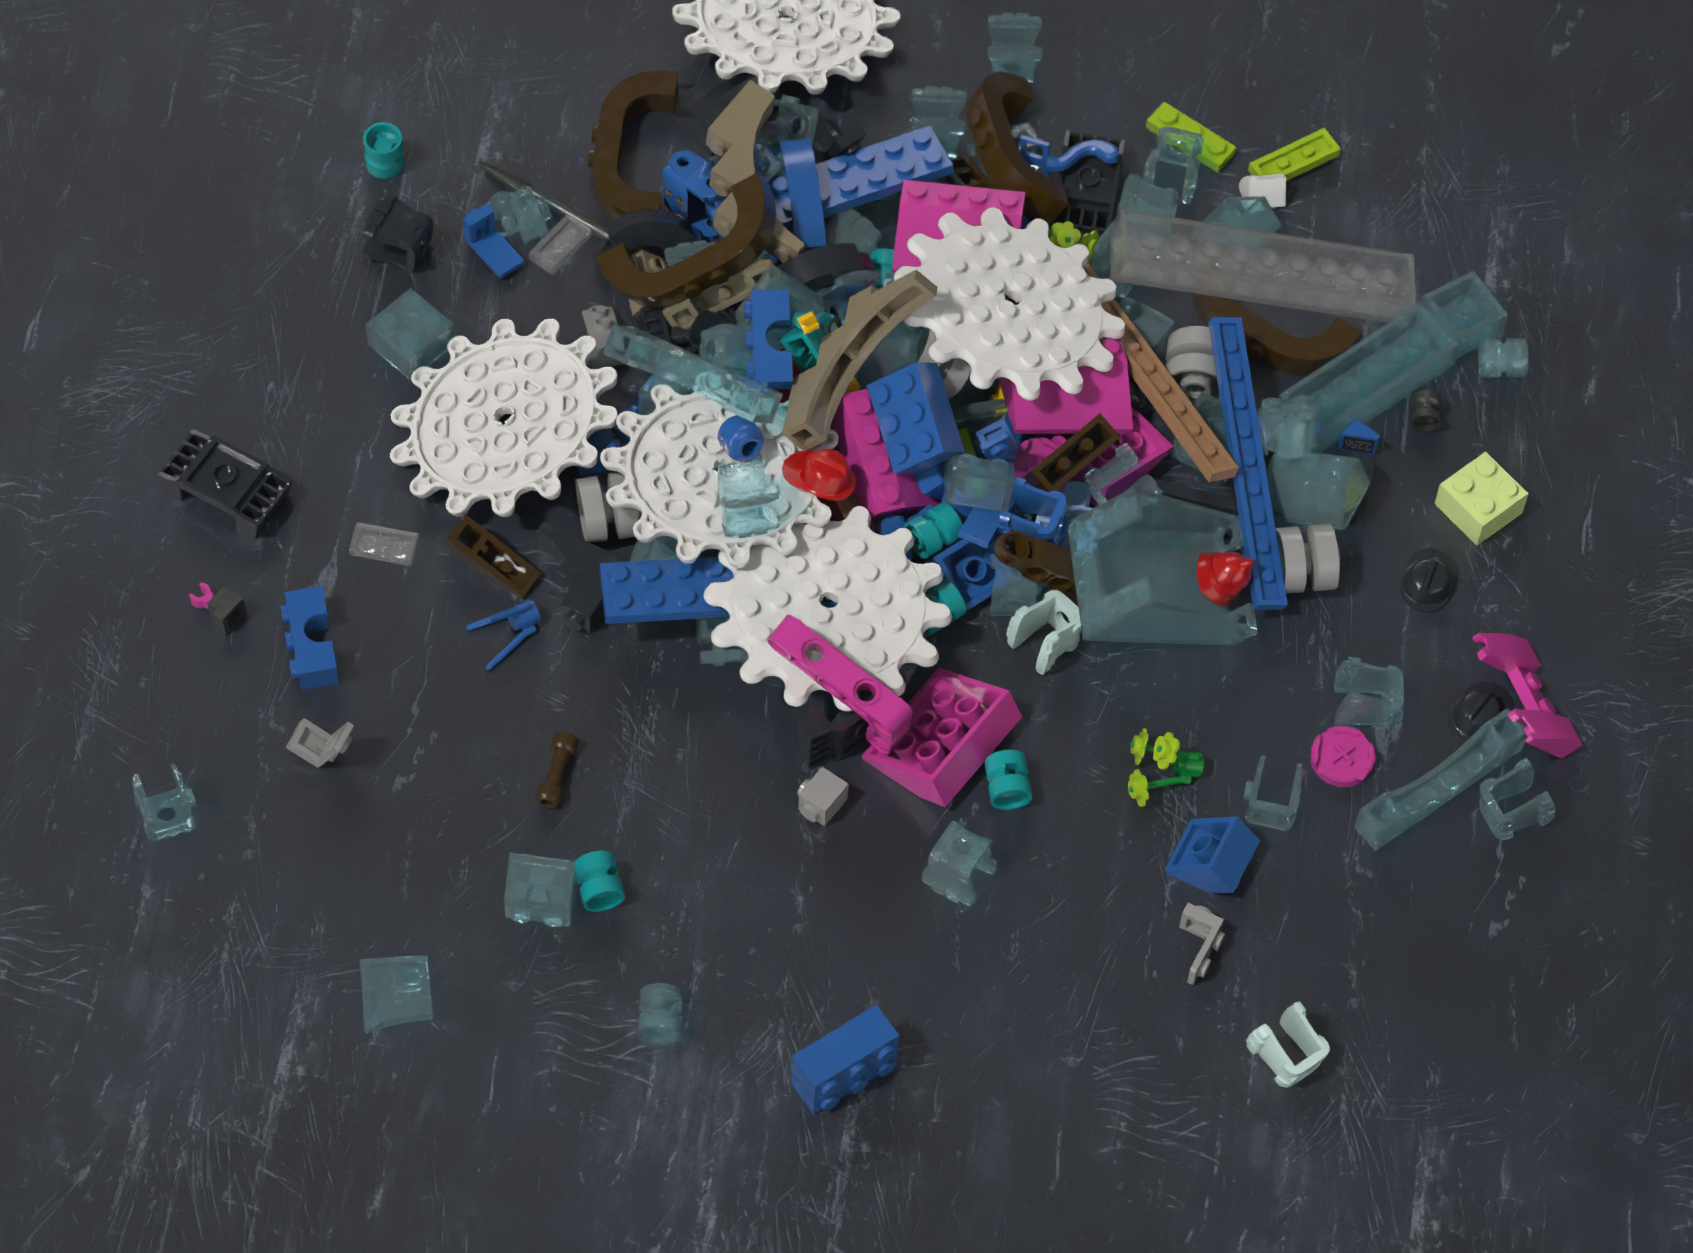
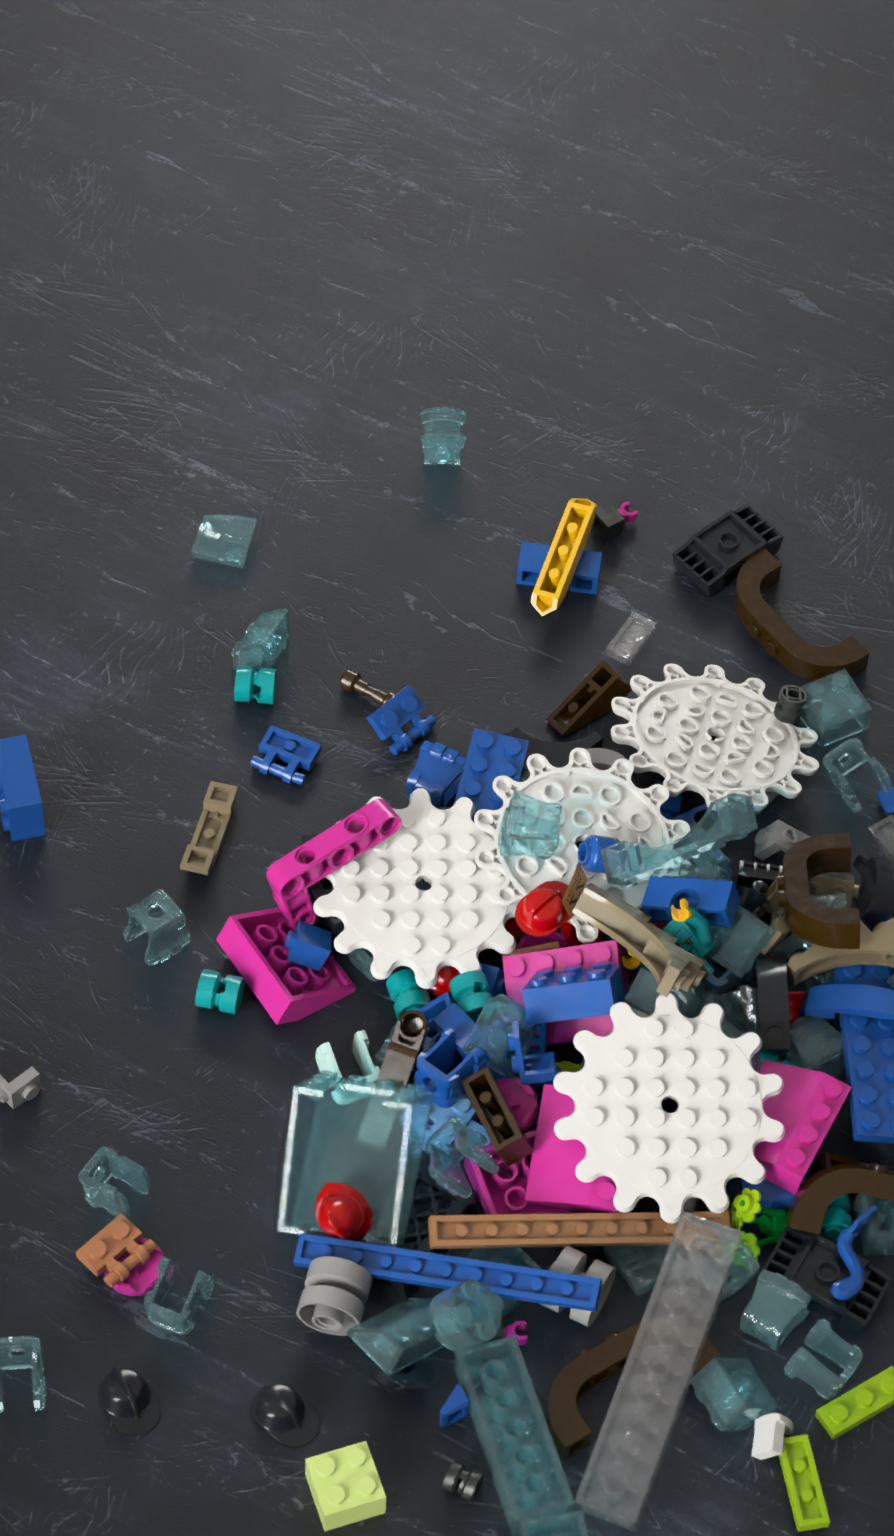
camera: 110 degrees right, 5 degrees down
(313, 615) = (563, 555): none -> yellow brick
(316, 744) = (460, 546): light grey bracket -> none
(321, 420) = (778, 637): none -> dark brown arch
(431, 362) = (790, 704): none -> pearl dark grey wheel
(481, 304) = (858, 756): none -> clear light blue piece
(521, 617) = (524, 710): blue plant -> none
(588, 723) = (397, 712): none -> blue plate
(657, 662) = (437, 772): none -> blue piece
(660, 1013) = (124, 690): clear light blue wheel -> none
(666, 825) = (288, 748): none -> blue plate
(794, 449) = (574, 890): none -> clear orange sticker
(810, 866) = (211, 828): none -> dark tan slope
(822, 796) = (260, 854): light grey brick -> none
(928, 704) = (308, 945): none -> blue brick
(1166, 751) = (176, 1131): plant -> none
(1213, 854) = (80, 1120): blue slope -> none
(1340, 776) = (110, 1244): none -> nougat plate
(1405, 806) = (66, 1324): clear light blue arch -> none
(1542, 724) = (75, 1440): dark pink wedge -> none

